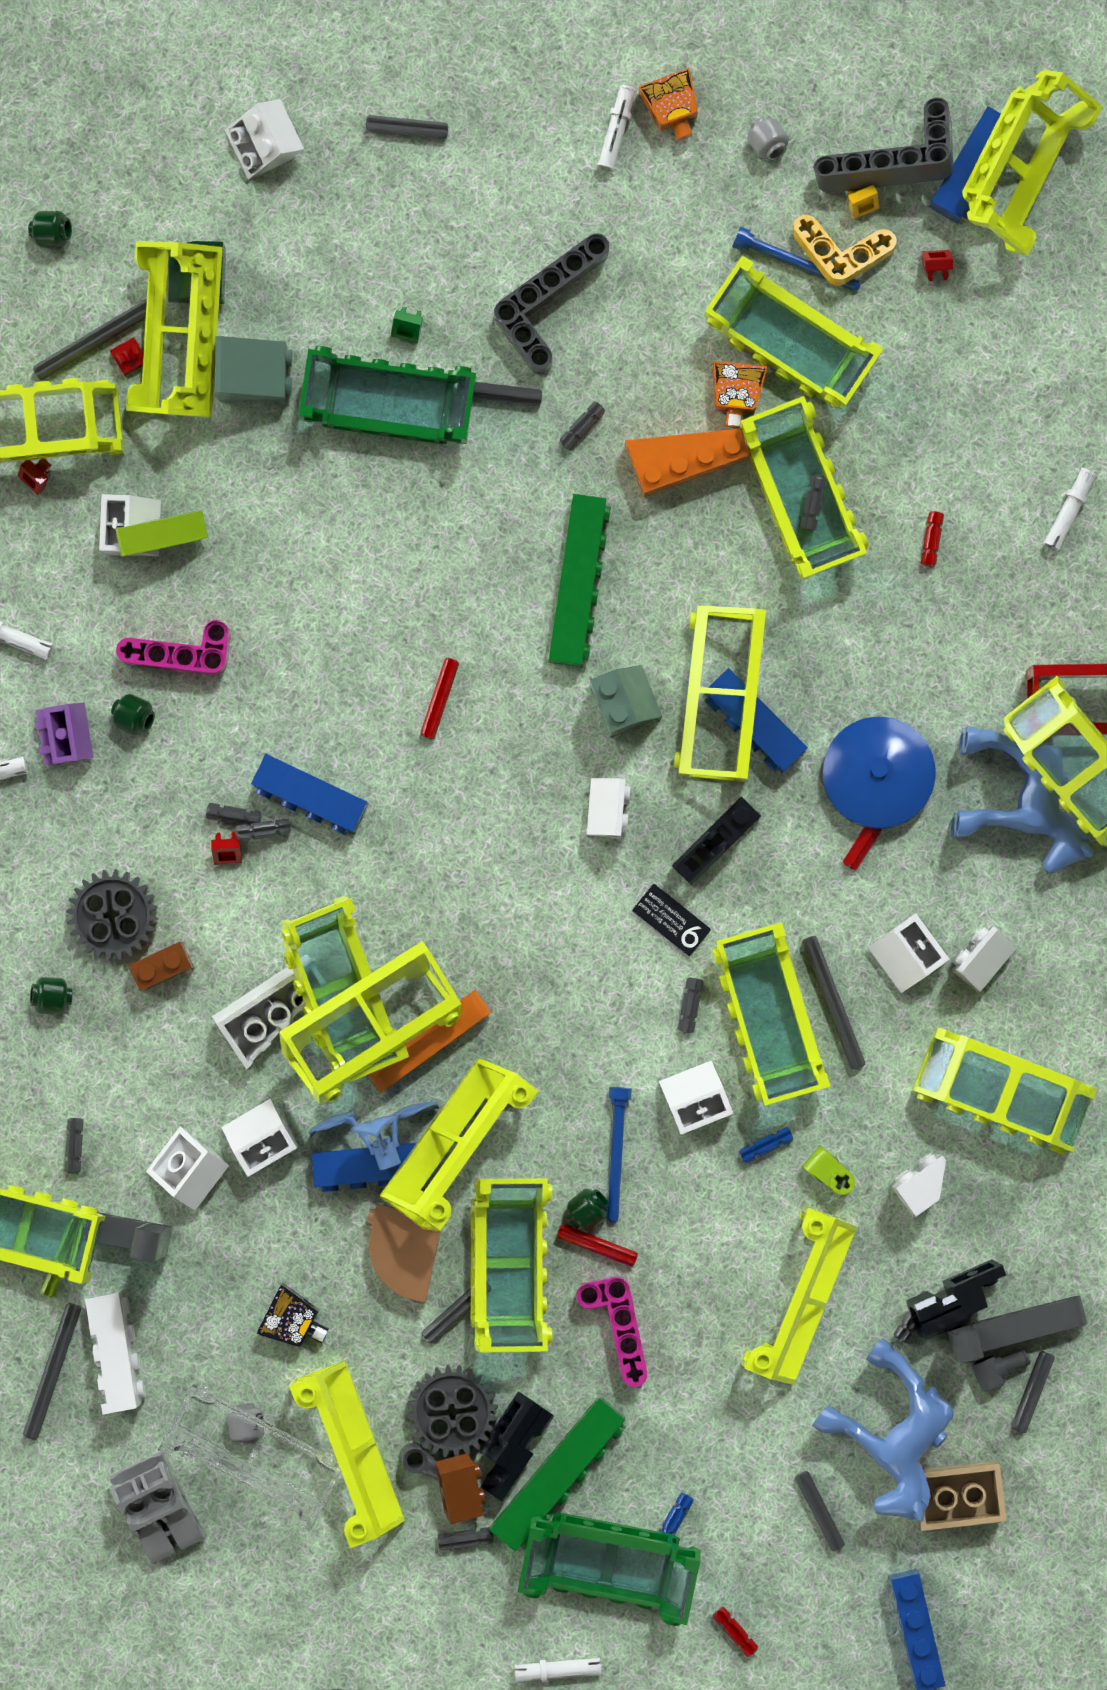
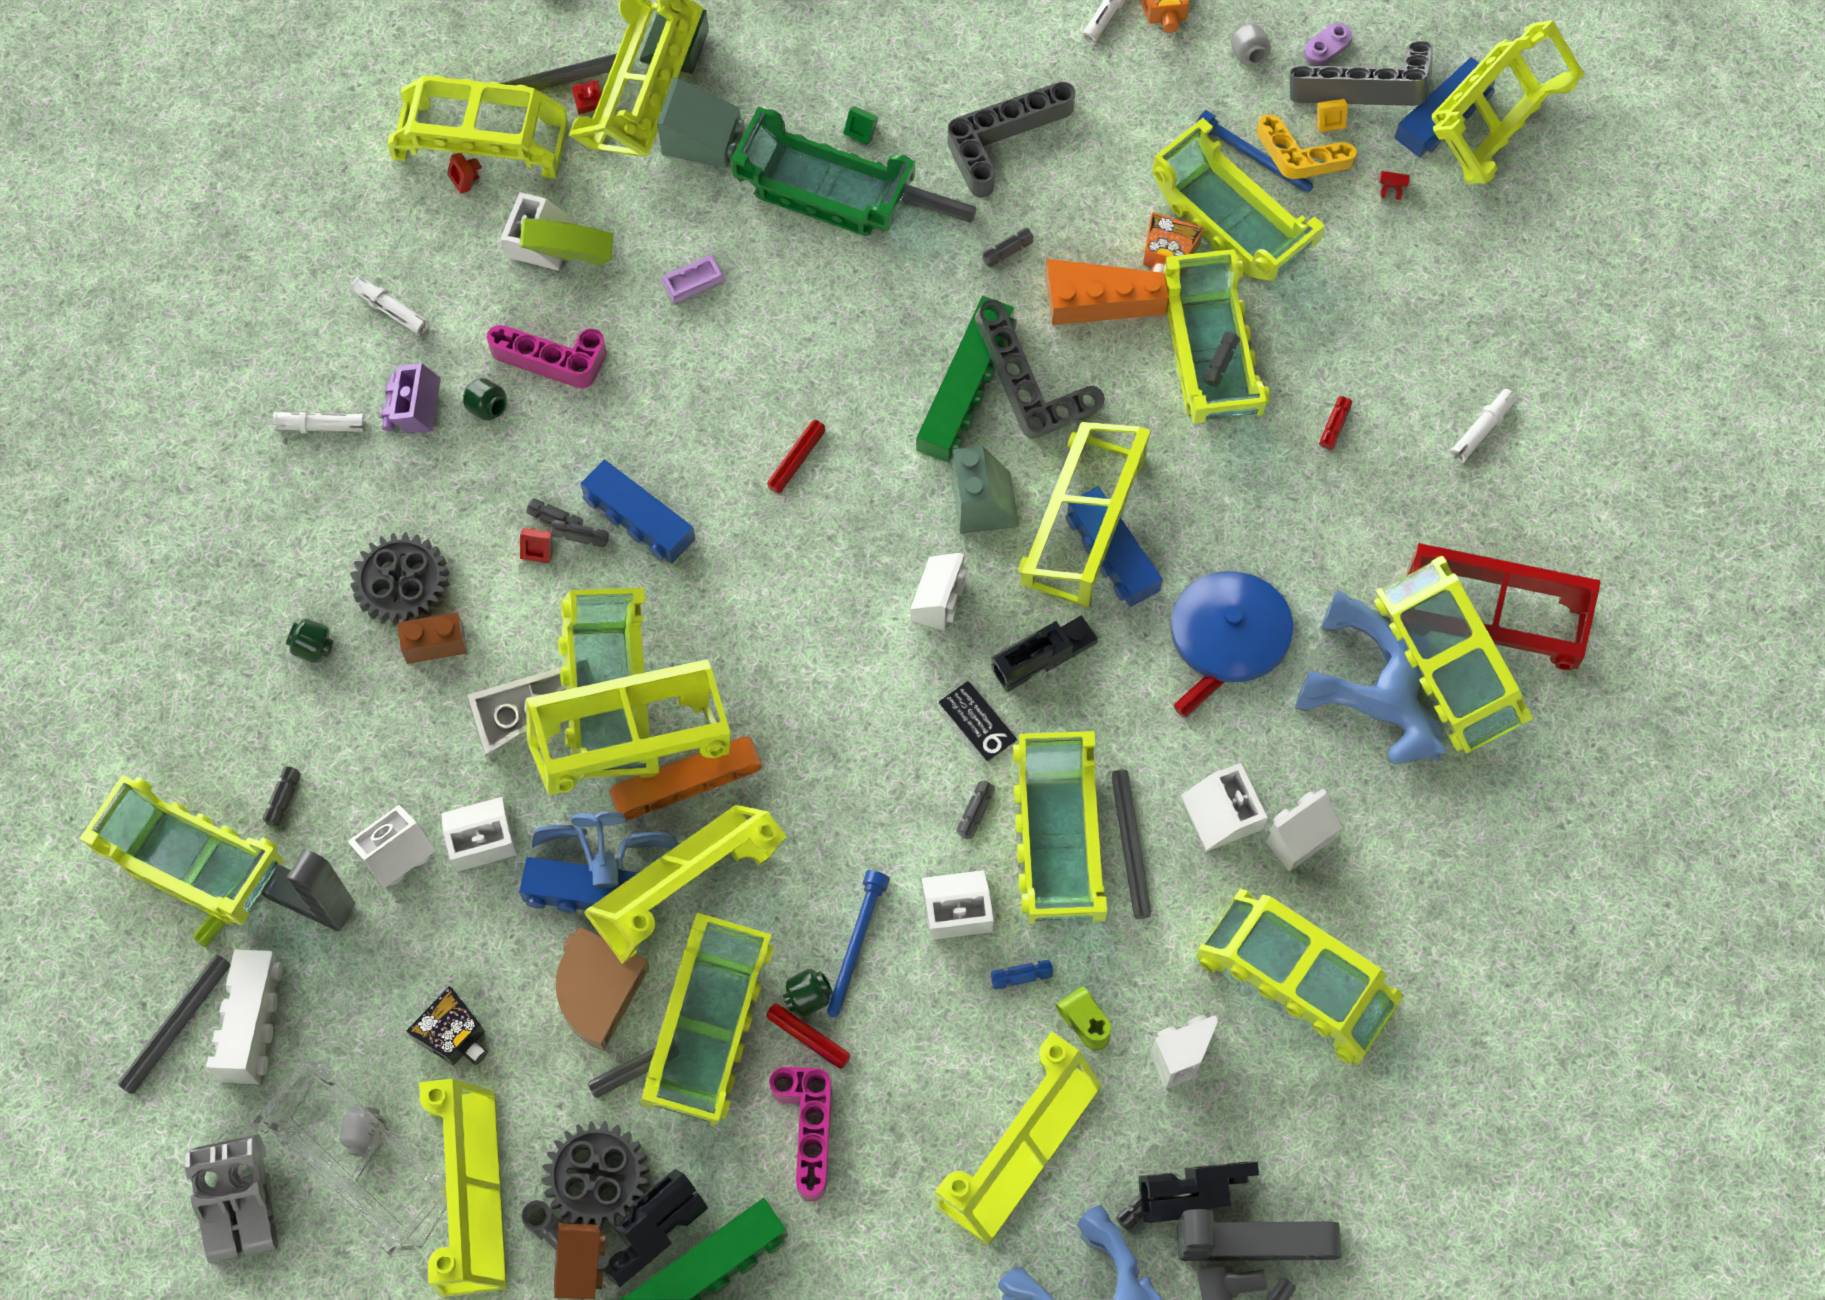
camera: 15 degrees right, 20 degrees down
(290, 536) = (692, 279): none -> lavender plate
(635, 576) = (1026, 381): none -> dark grey beam
(843, 114) = (1329, 42): none -> lavender plate

